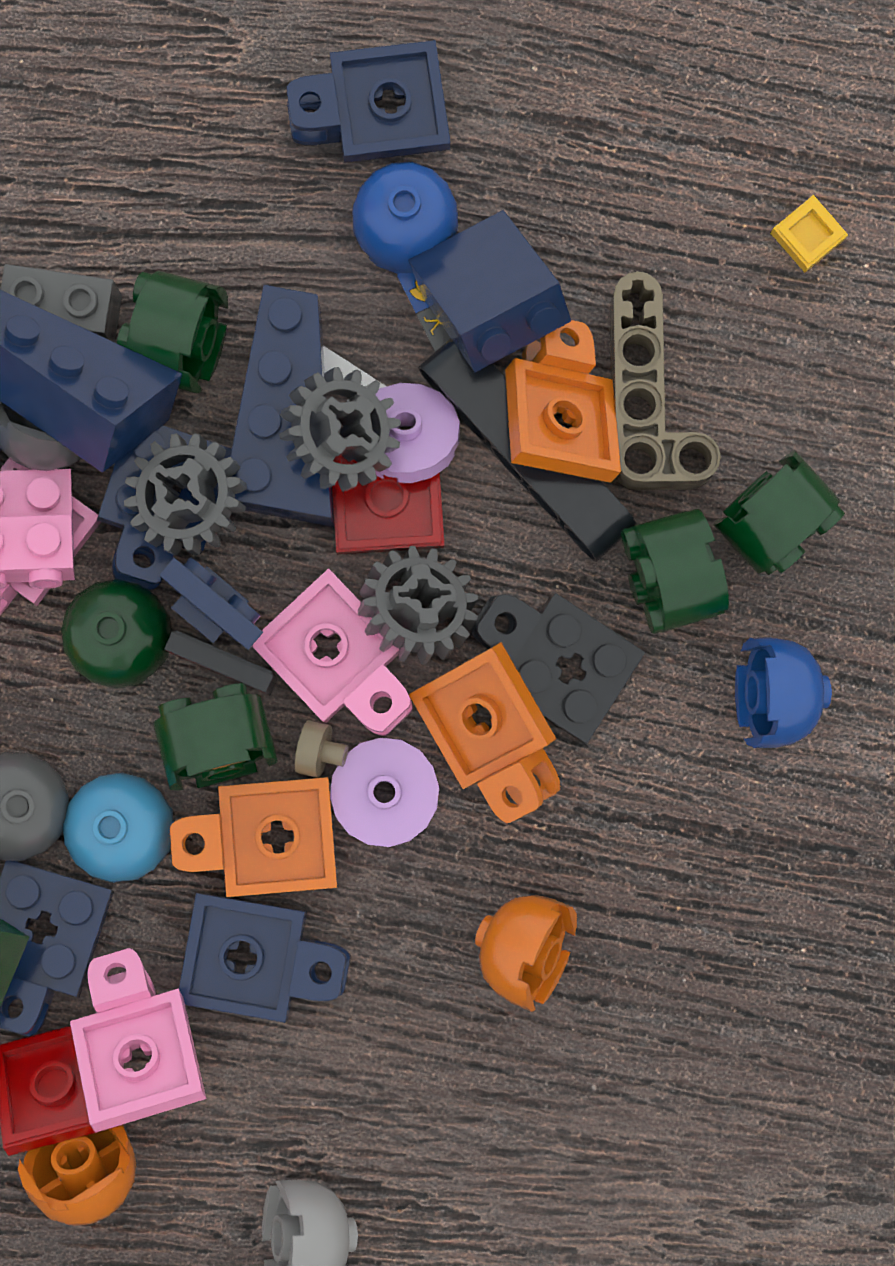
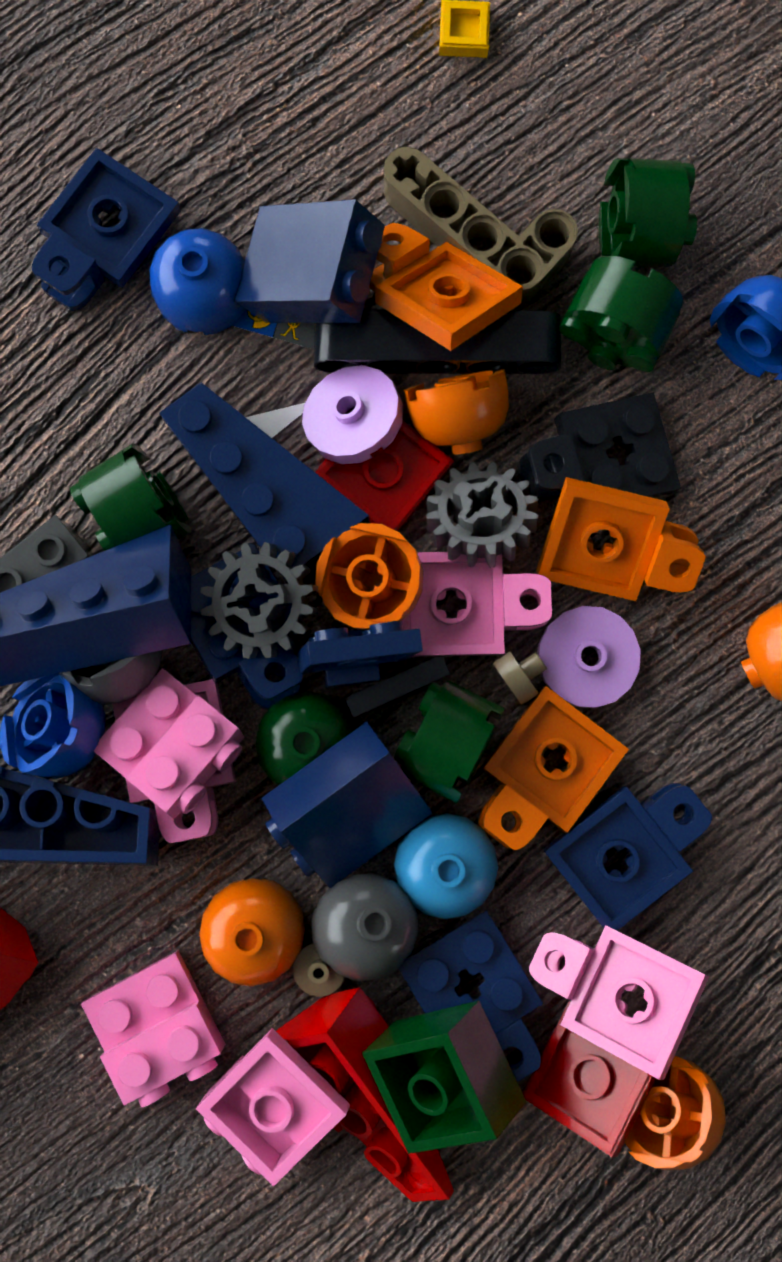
camera: 50 degrees left, 0 degrees up
(88, 705) = (344, 807): none -> dark blue brick
(281, 562) = (369, 576): none -> orange cylinder
(318, 420) = (314, 449): dark grey gear -> none
(486, 511) = (460, 409): none -> orange cylinder

